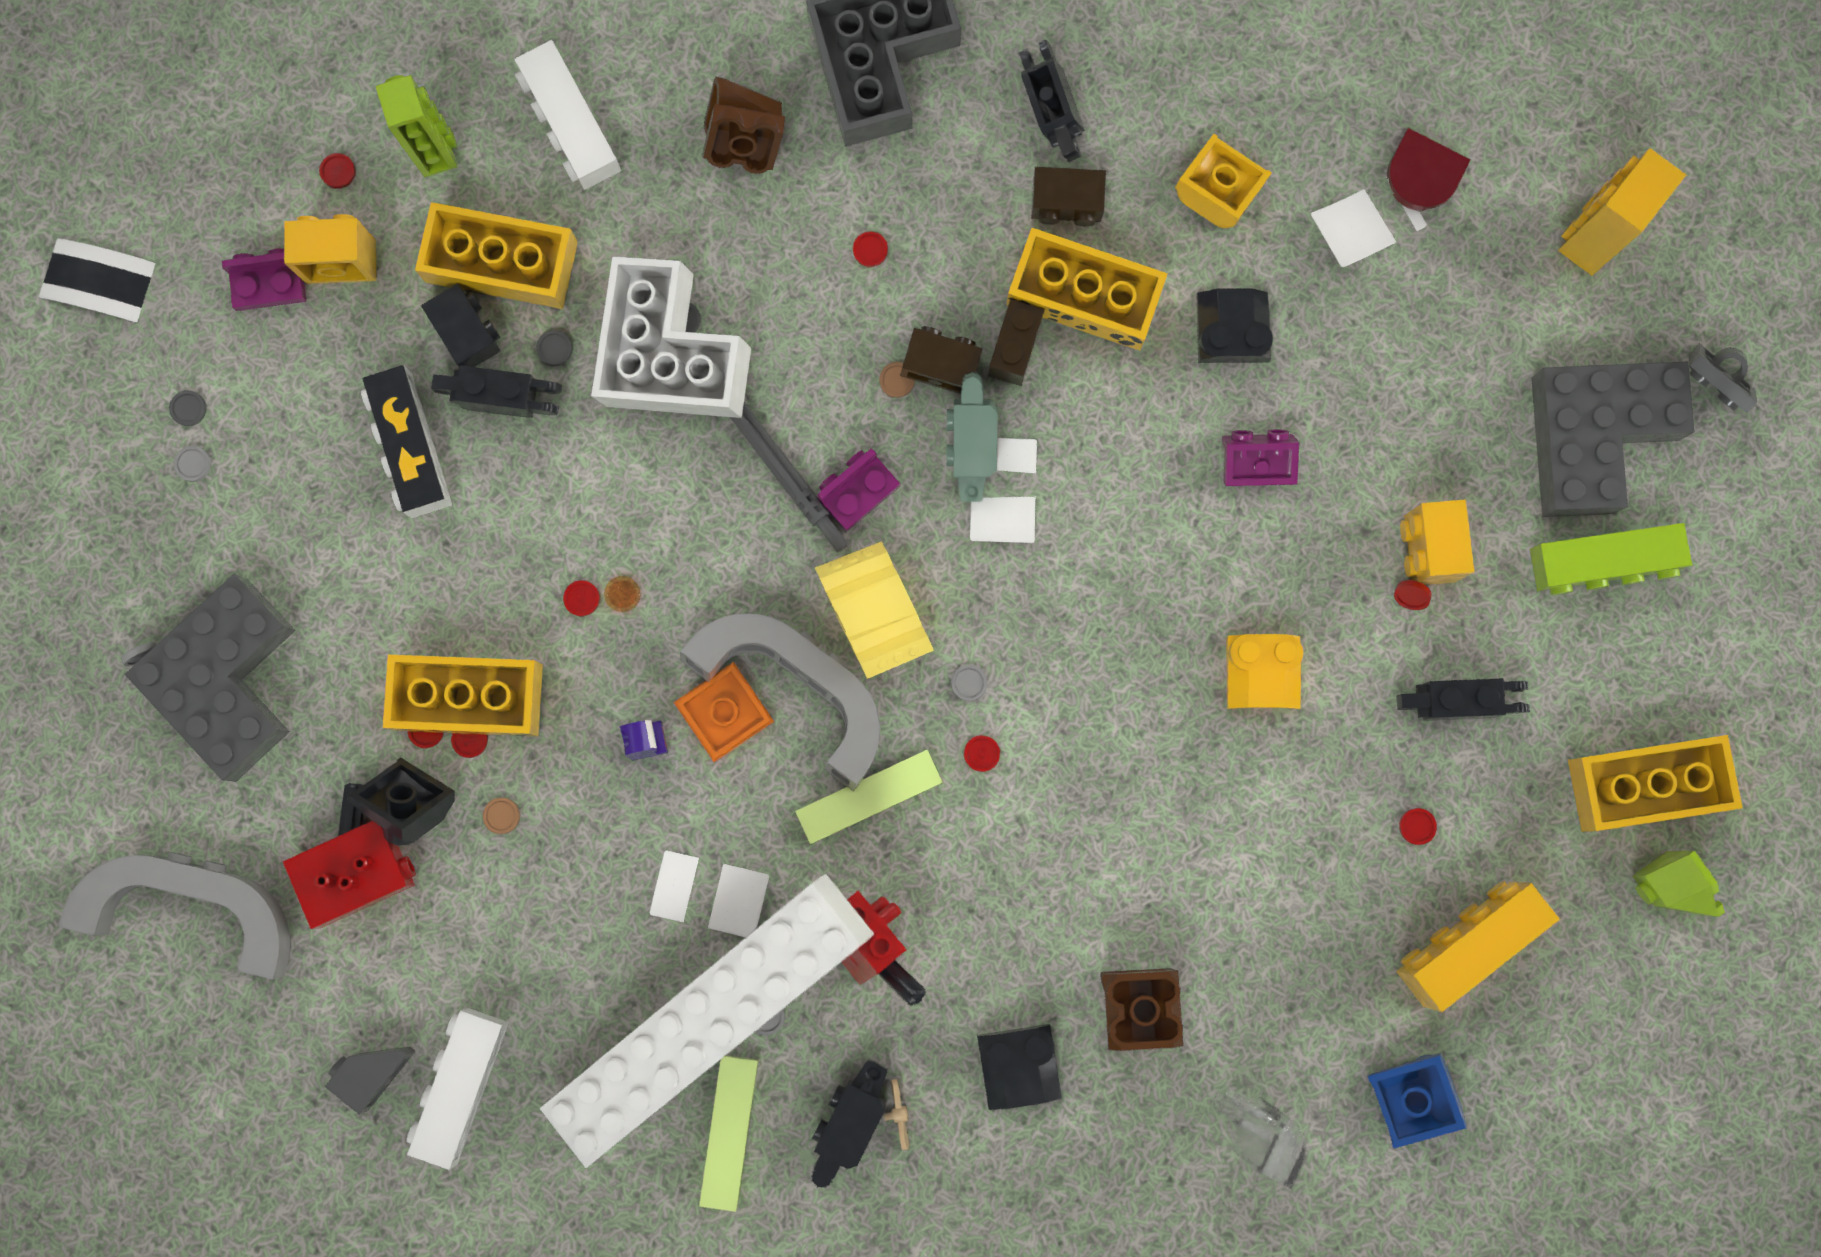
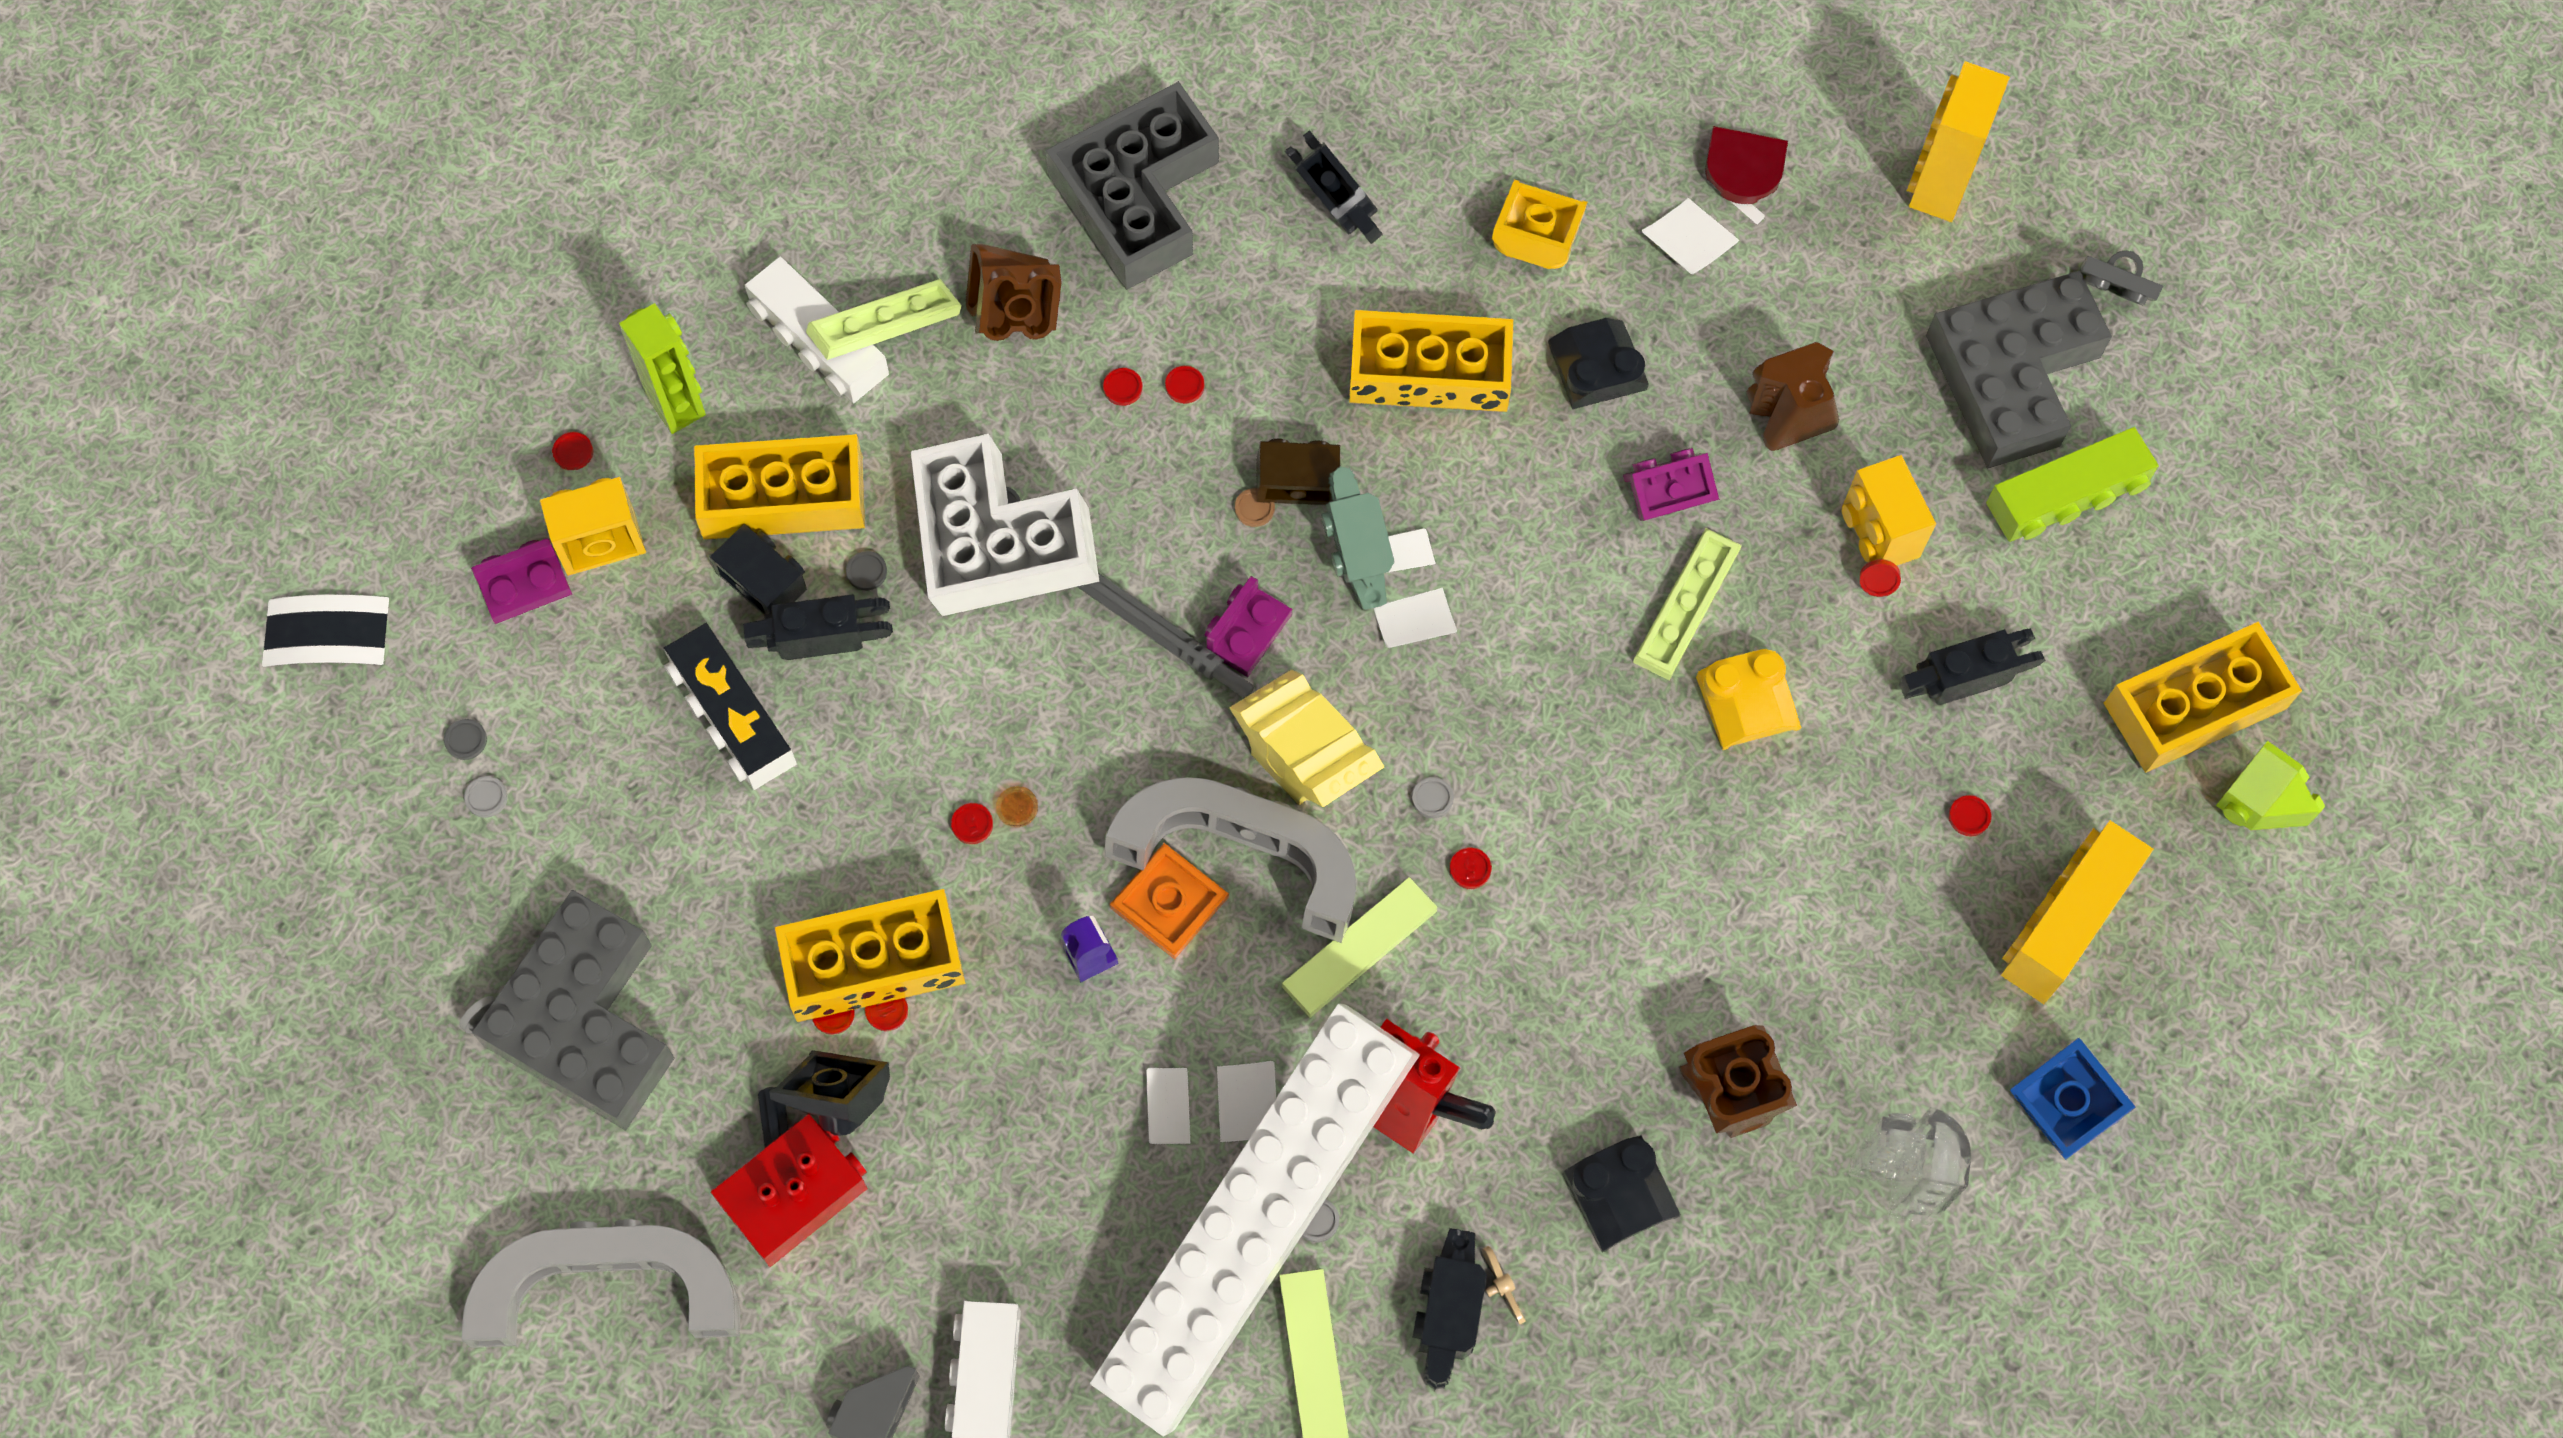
camera: 20 degrees left, 15 degrees down
(501, 815) = (947, 1082): medium nougat piece -> none
(624, 123) = (883, 319): none -> yellowish green tile
(816, 236) = (1122, 386): none -> red piece
(1016, 342) = (1373, 433): dark brown brick -> none
(1068, 195) = (1381, 276): dark brown brick -> none
(1239, 570) = (1687, 604): none -> yellowish green tile
(1394, 410) = (1794, 396): none -> reddish brown piece

